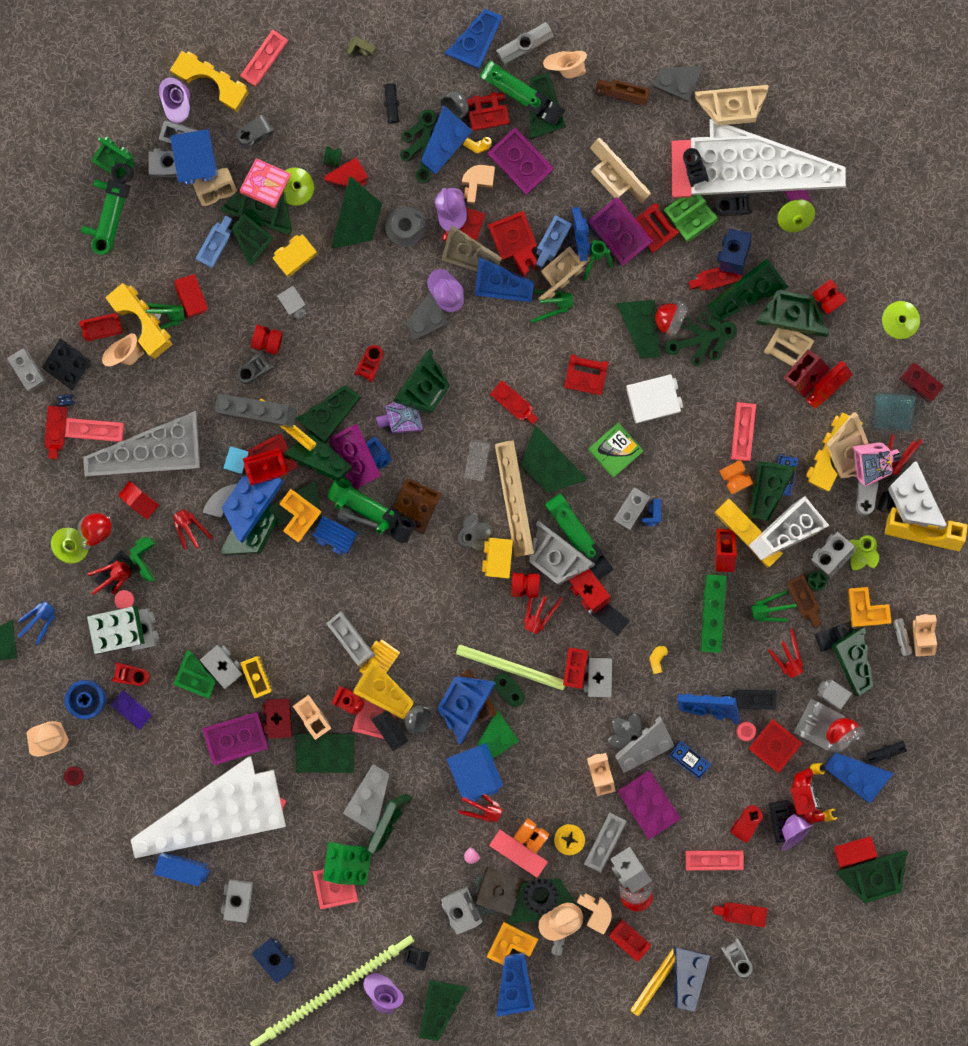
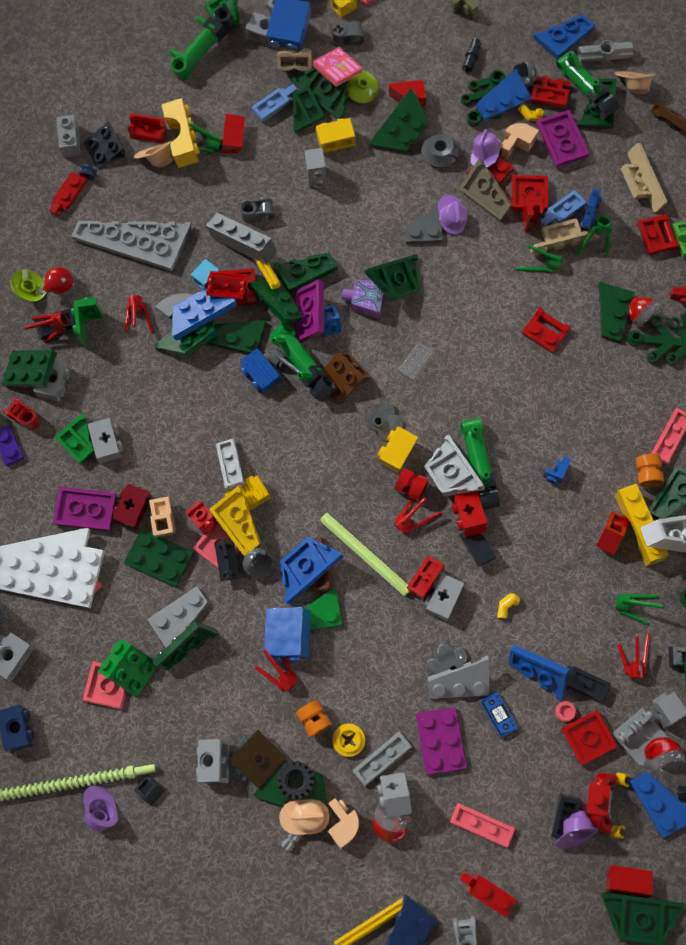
camera: 30 degrees right, 15 degrees down
(94, 430) = (99, 205): coral tile -> none
(124, 599) = (51, 345): coral tile -> none
(138, 500) = (106, 276): red slope -> none
(256, 677) = (130, 461): yellow brick -> none
(266, 339) = (280, 191): red wheel -> none
(304, 515) = (240, 340): light orange plate -> none
(332, 156) = (403, 74): dark green wheel -> none
(369, 364) = (356, 245): red piece -> none
(439, 1007) = (147, 849): dark green wing -> none
(471, 856) = (247, 713): bright pink hinge -> none
(501, 283) = (503, 224): blue wing -> none
(509, 689) = (354, 573): dark green plate -> none
(509, 938) = (246, 811): light orange plate -> none
(513, 402) = (470, 327): red hinge -> none
(514, 498) = (434, 406): tan plate -> none
(515, 988) = (229, 864): blue wing -> none
(518, 853) = (293, 731): coral tile -> none
(548, 464) = (479, 391): dark green wing -> none
(601, 774) = (406, 688): light nougat brick -> none
(615, 450) = (546, 403): slope -> none
(620, 231) = (628, 223): magenta plate -> none
(629, 940) = (364, 867): red hinge -> none
(631, 508) = (539, 458): light grey brick -> none
(654, 398) = (600, 372): white brick -> none
(713, 613) = (578, 584): green brick -> none
(744, 826) = (527, 805): red piece -> none
(804, 599) = (673, 610): reddish brown hinge -> none

